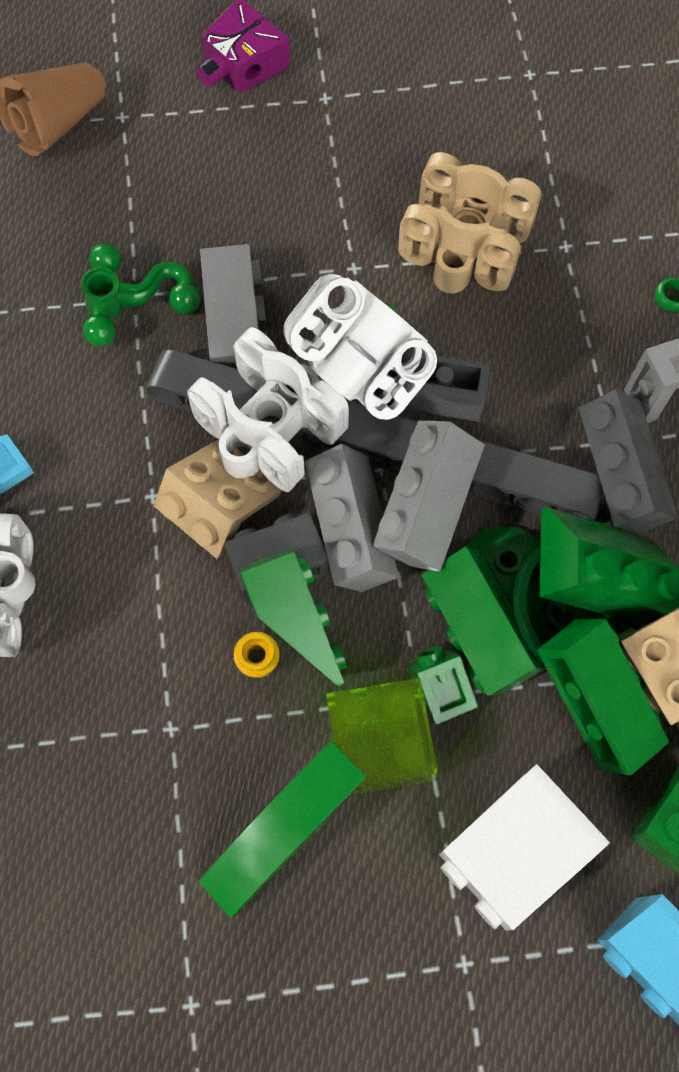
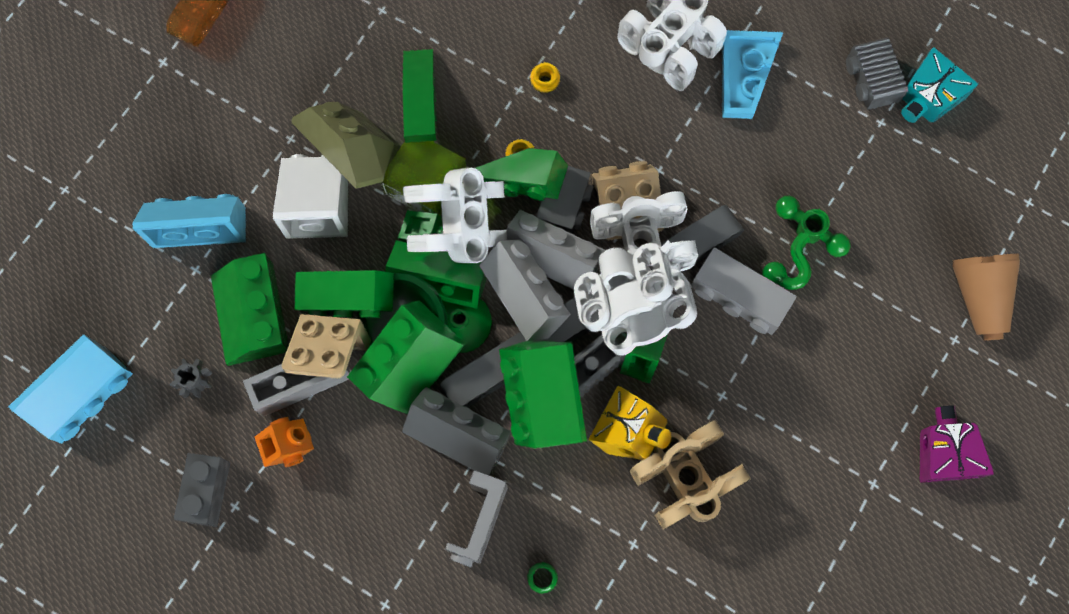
camera: 130 degrees right, 5 degrees up
(125, 693) = (548, 70): none -> yellow plate
(413, 624) = (457, 230): none -> white piece
(421, 861) = (347, 141): none -> olive wedge
(469, 303) = (630, 427): none -> yellow torso
(520, 392) = (542, 394): none -> green slope

